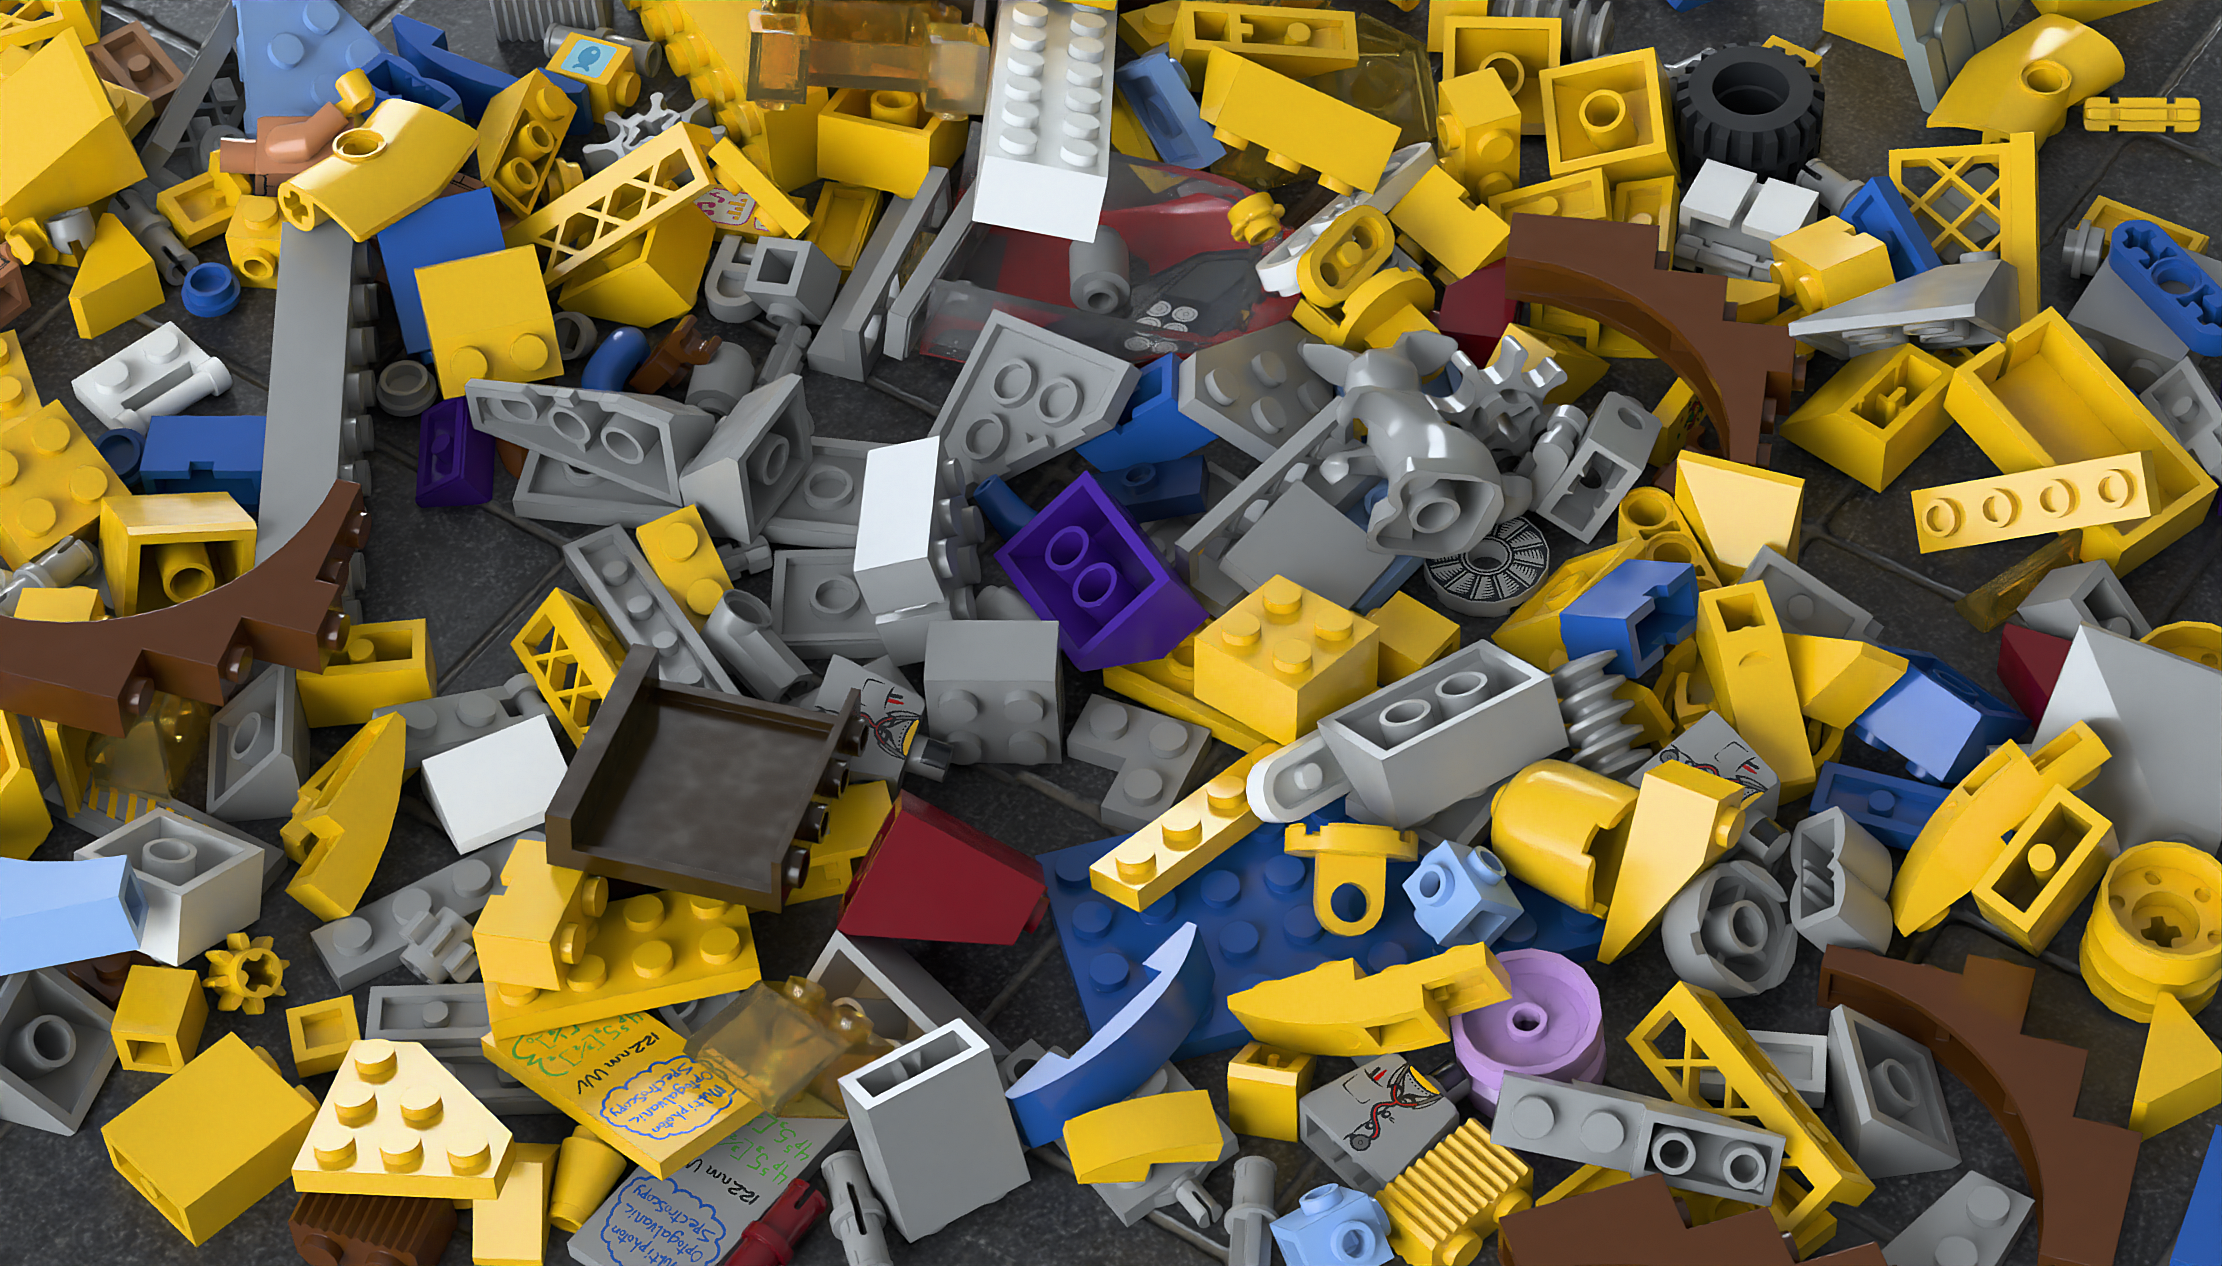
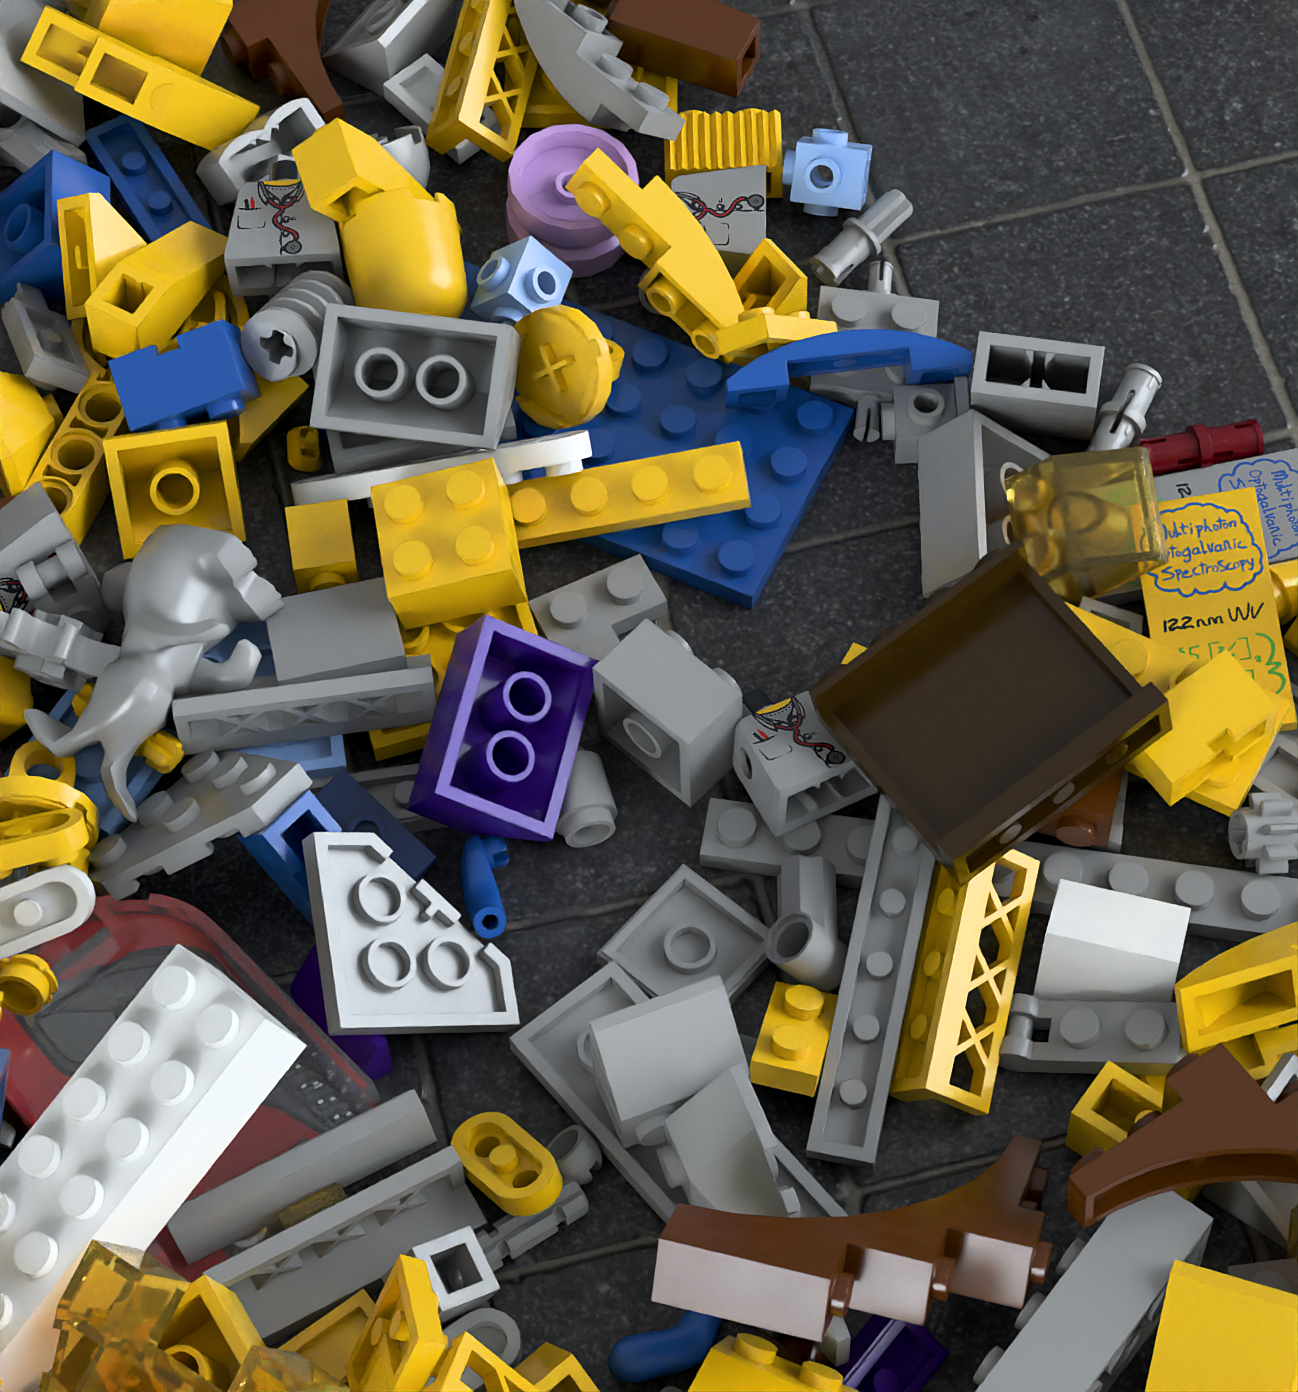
camera: 140 degrees left, 10 degrees up
(421, 474) = (885, 1263): none -> reddish brown arch
(674, 357) = (614, 1298): reddish brown plate -> none
(721, 381) = (597, 1236): light grey brick -> none
(829, 374) = (507, 1164): none -> yellow plate
(916, 544) = (614, 861): light grey piece -> none
(941, 882) = (860, 557): dark red slope -> none
(1128, 1136) = (898, 291): yellow slope -> none
(1197, 1006) = (763, 331): none -> yellow plate

